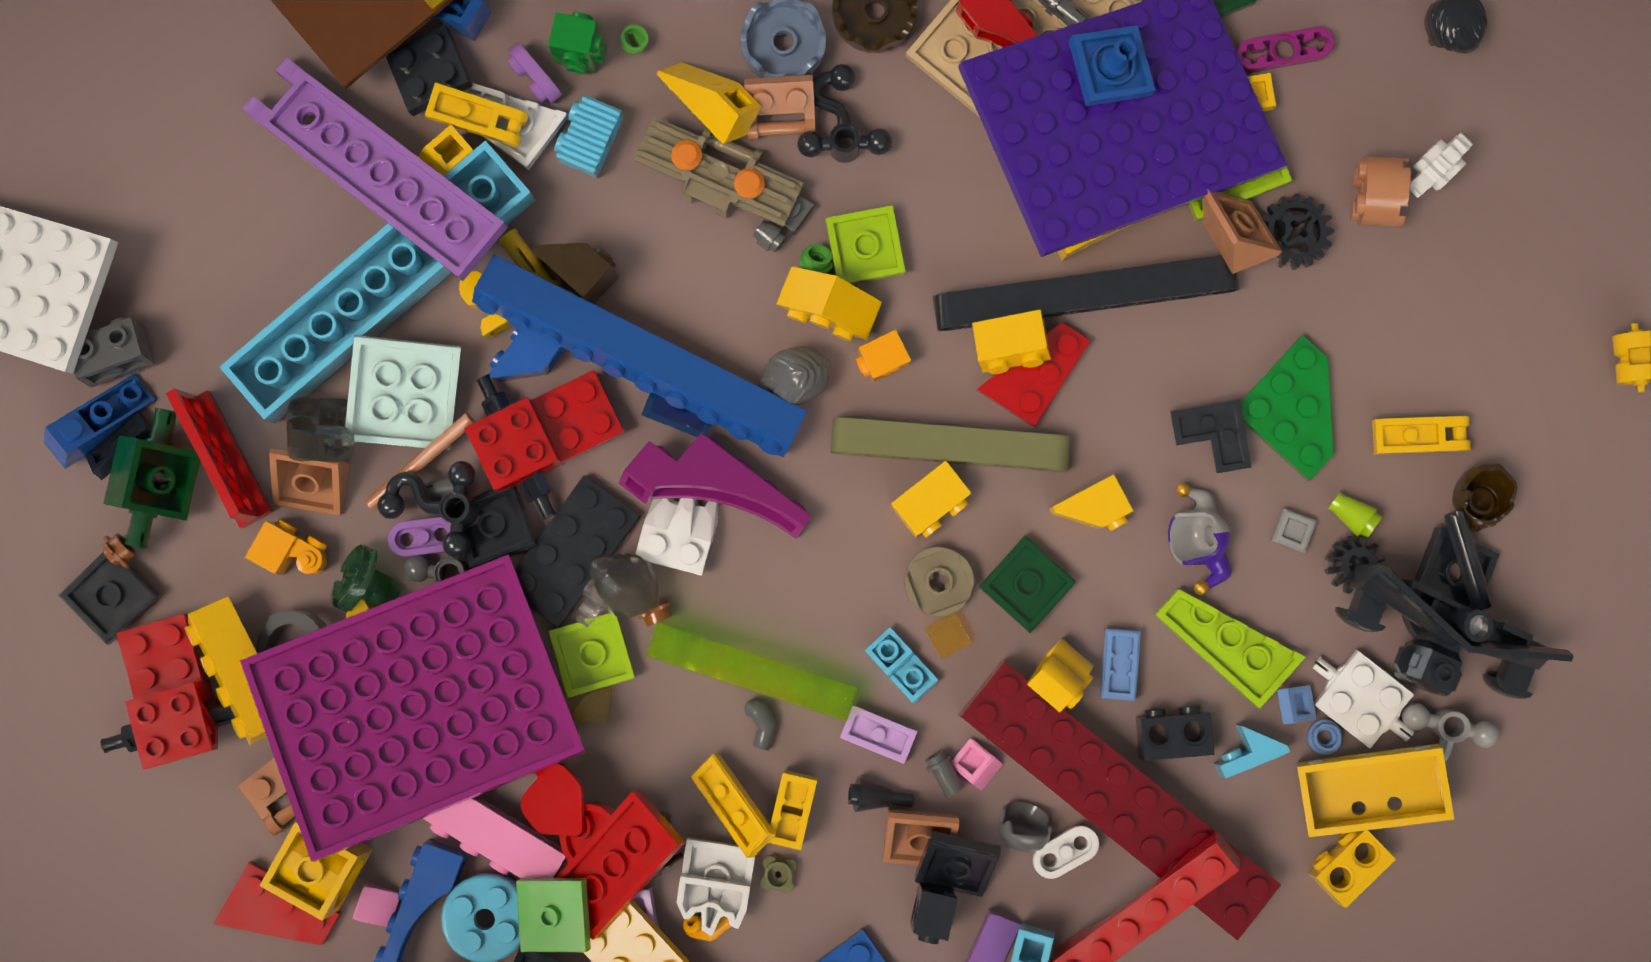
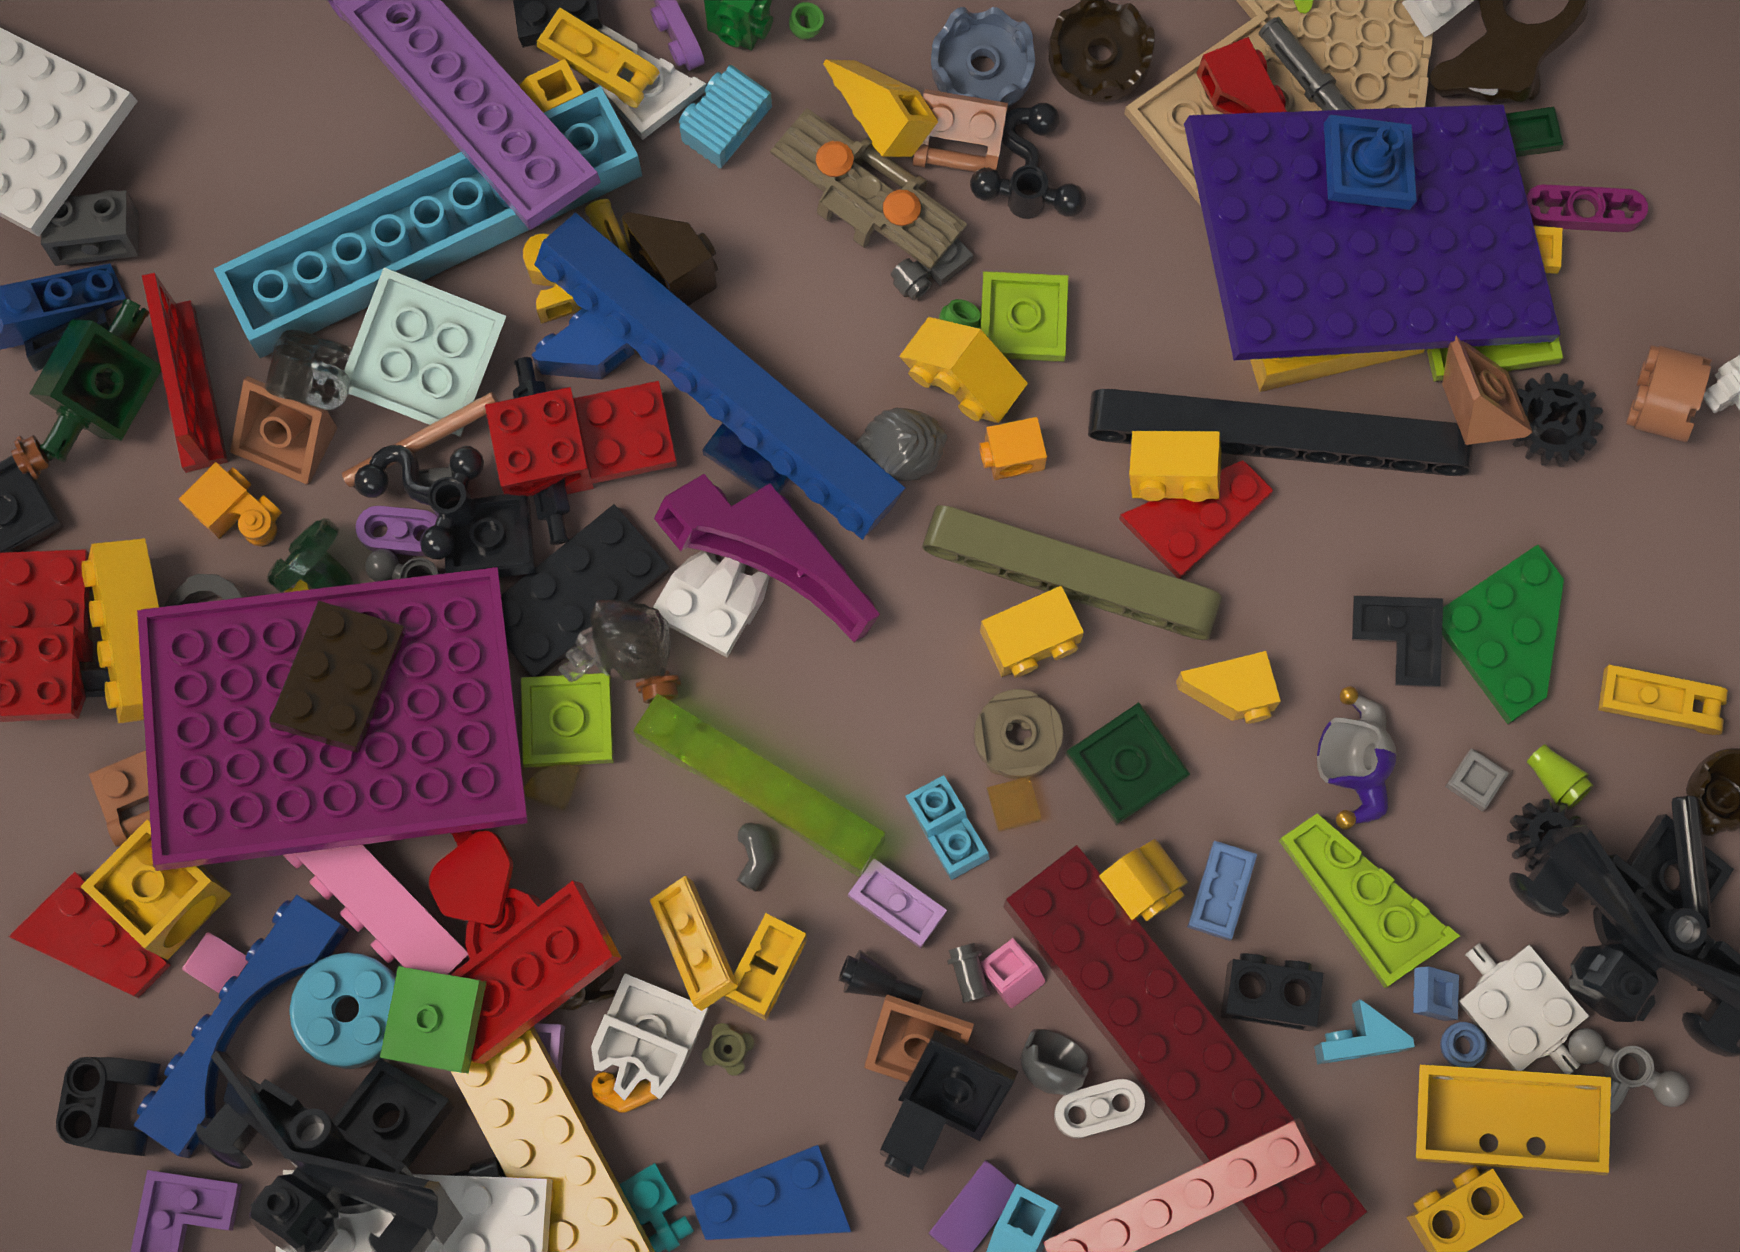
camera: 15 degrees right, 10 degrees down
(410, 676) = (337, 676): none -> dark brown plate

